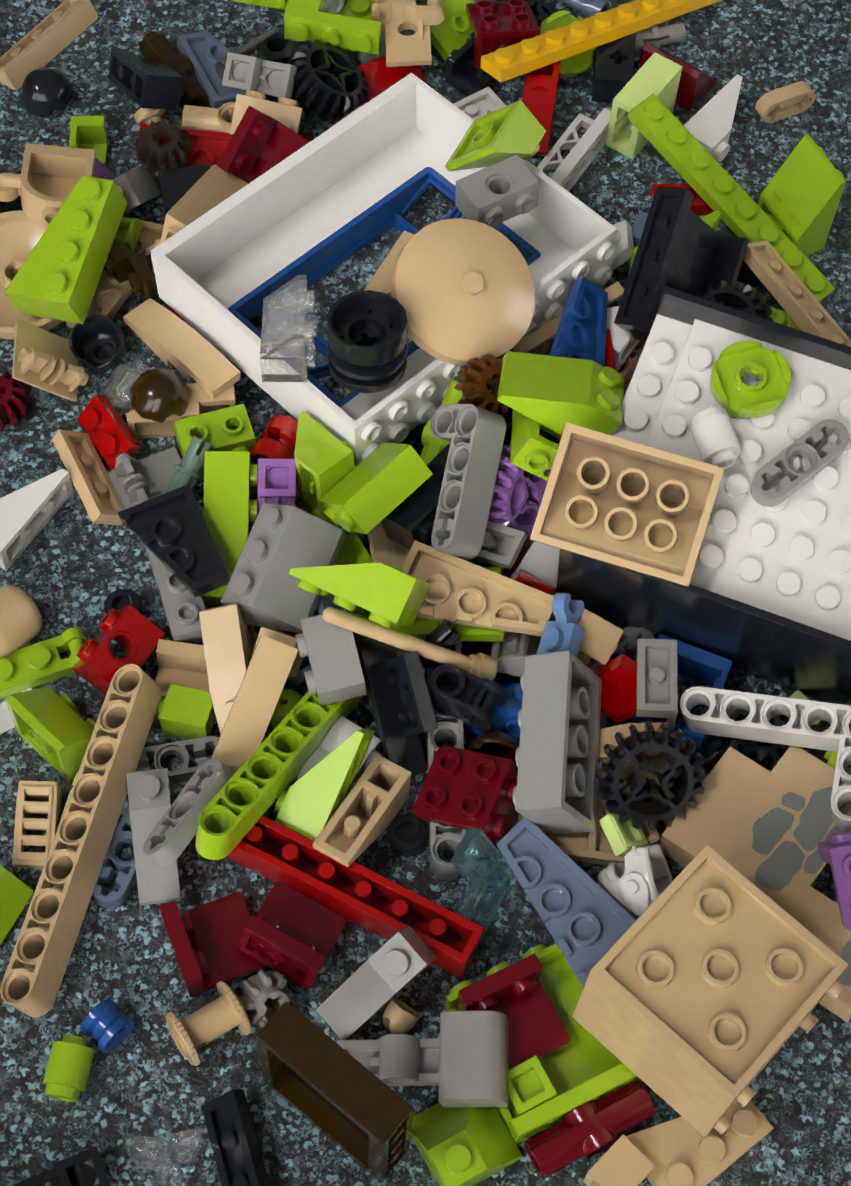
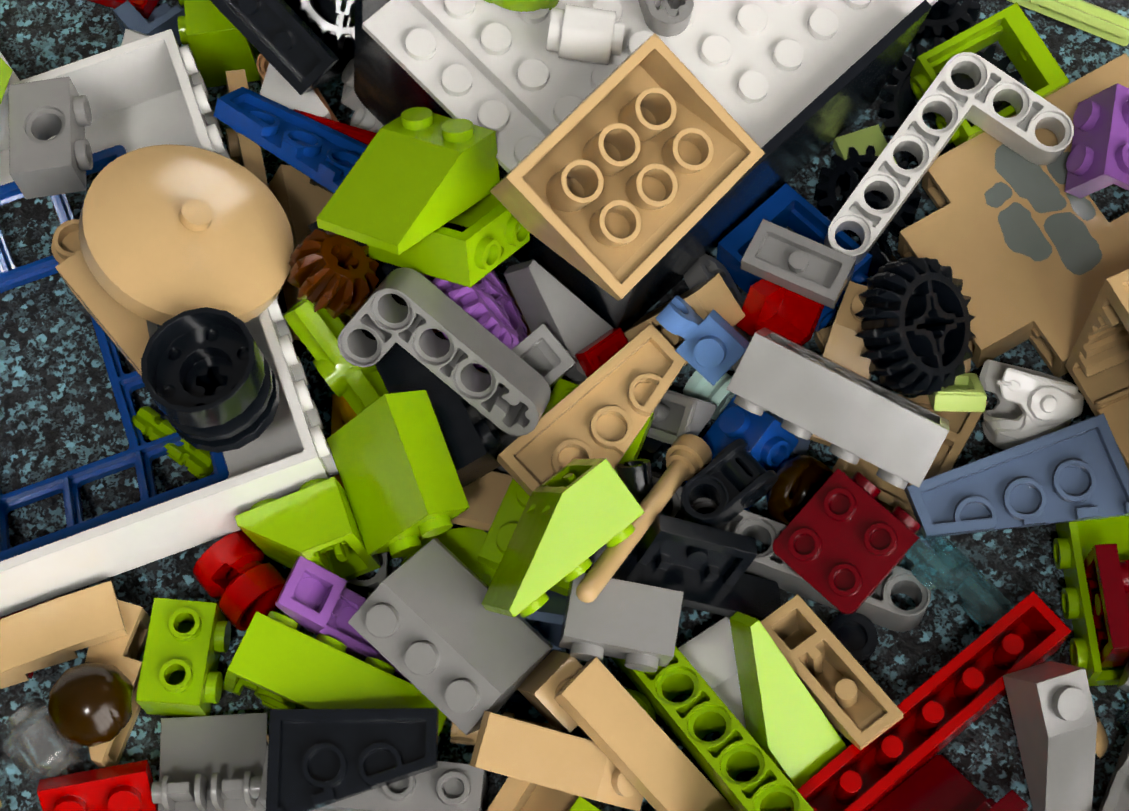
camera: 60 degrees left, 5 degrees up
(191, 465) = (227, 710): sand green axle -> none
(288, 332) = (137, 474): clear slope -> none

